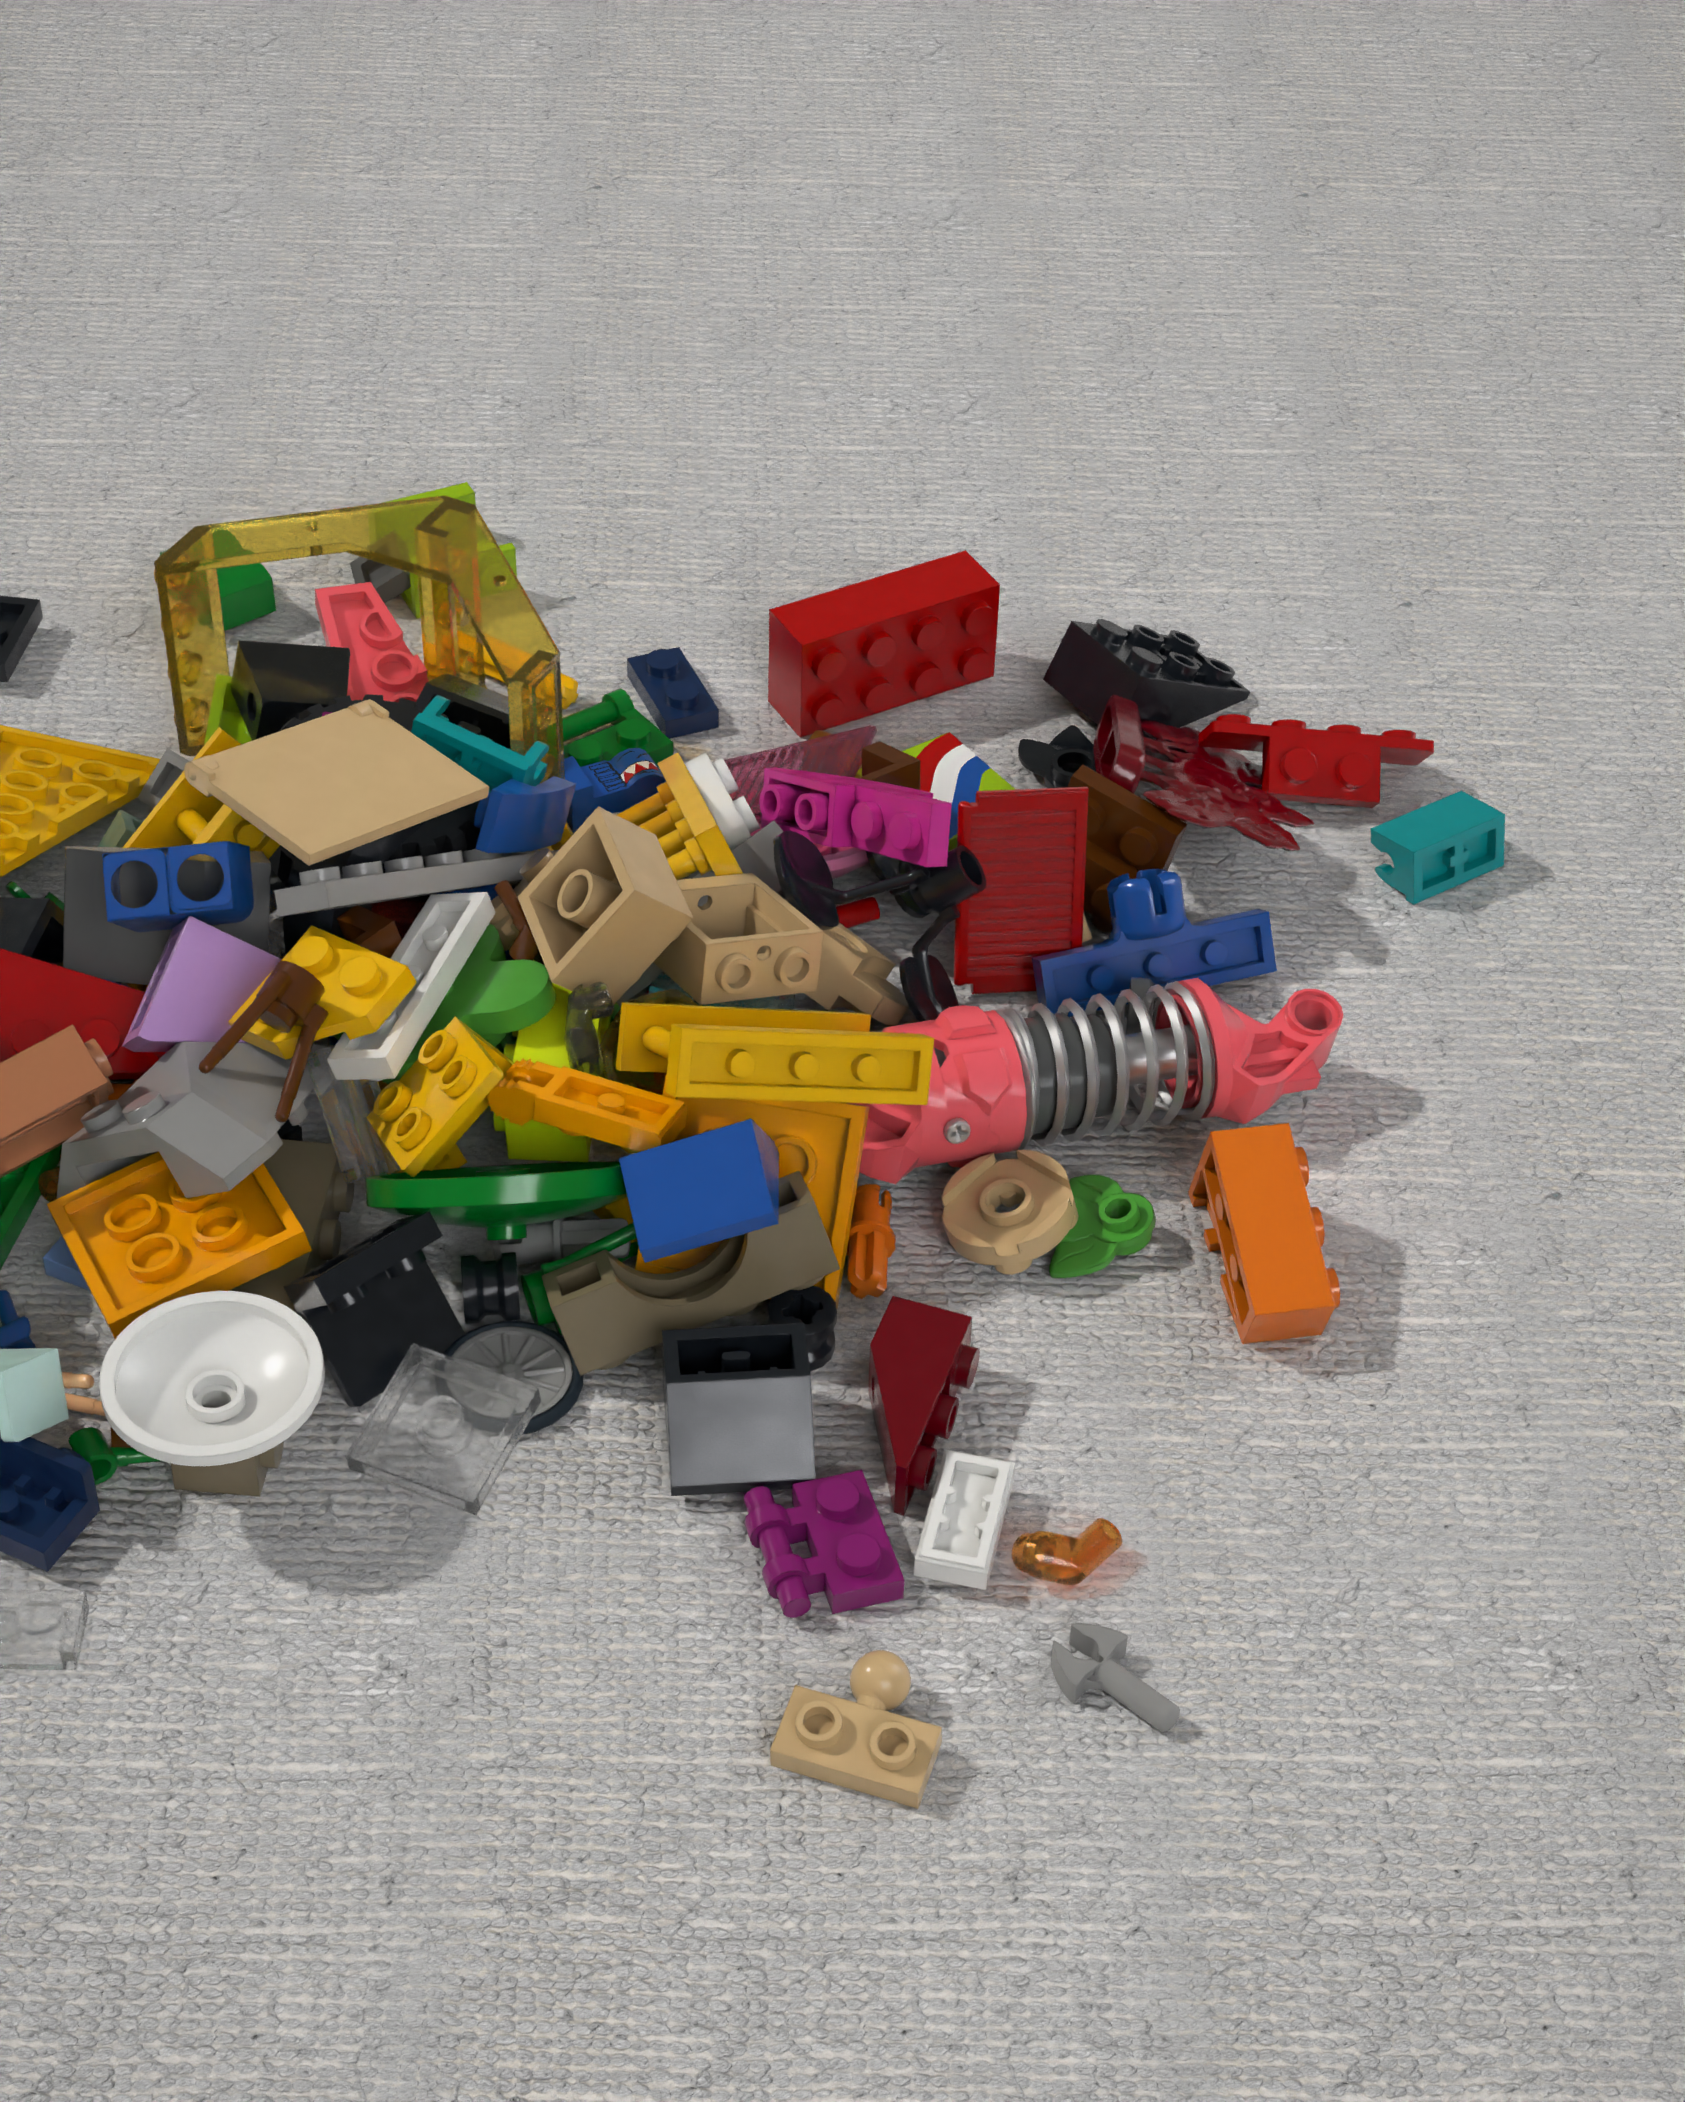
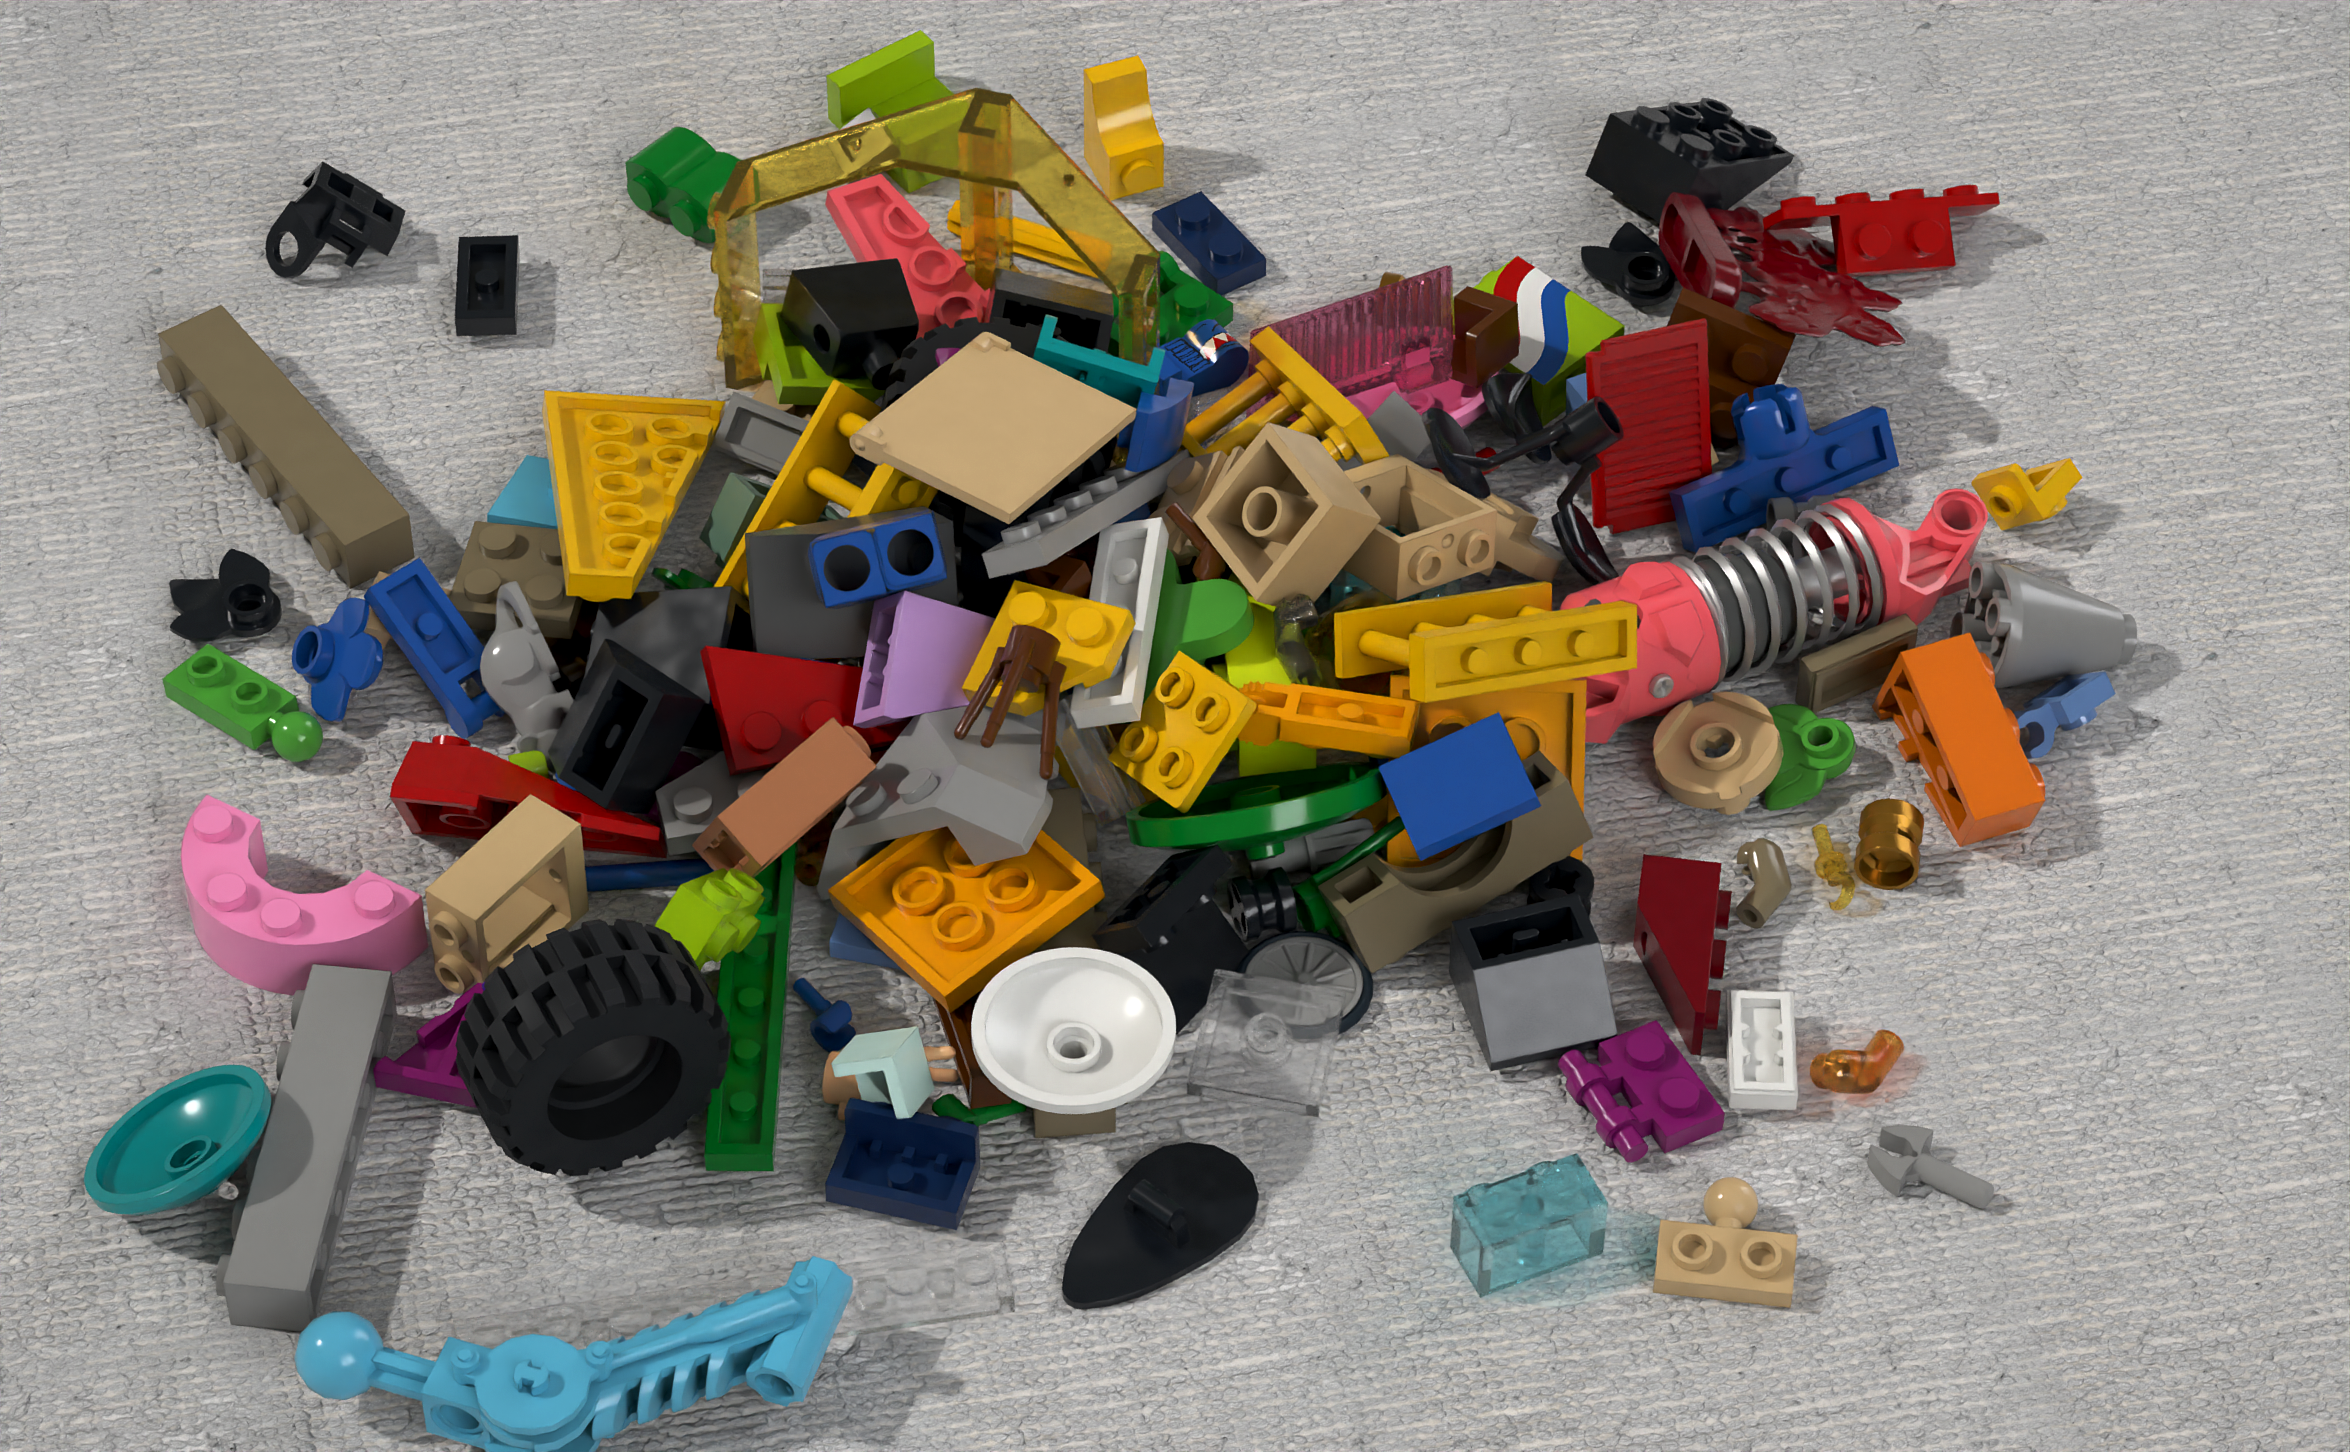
camera: 10 degrees left, 5 degrees up
(264, 1602) = (1160, 1224): none -> black shield
(618, 581) = (1121, 129): none -> yellow arch
(647, 1666) = (1528, 1224): none -> clear light blue brick
(715, 785) = (1324, 357): white plate -> none
(858, 814) = (1481, 373): dark pink slope -> none
(870, 1242) = (1601, 808): orange axle -> none
(882, 643) = (1419, 162): red brick -> none
(1027, 1349) = (1770, 878): none -> dark tan arm
(1099, 1343) = (1832, 866): none -> clear yellow hand
(1167, 1317) = (1889, 844): none -> pearl gold wheel
(1168, 1146) = (1853, 664): none -> dark tan tile
(1374, 1138) = (2040, 627): none -> light grey cone
(1385, 1017) = (2026, 497): none -> yellow bracket
(1387, 1217) = (2065, 703): none -> medium blue plate
(1440, 845) = (2027, 306): teal hinge -> none

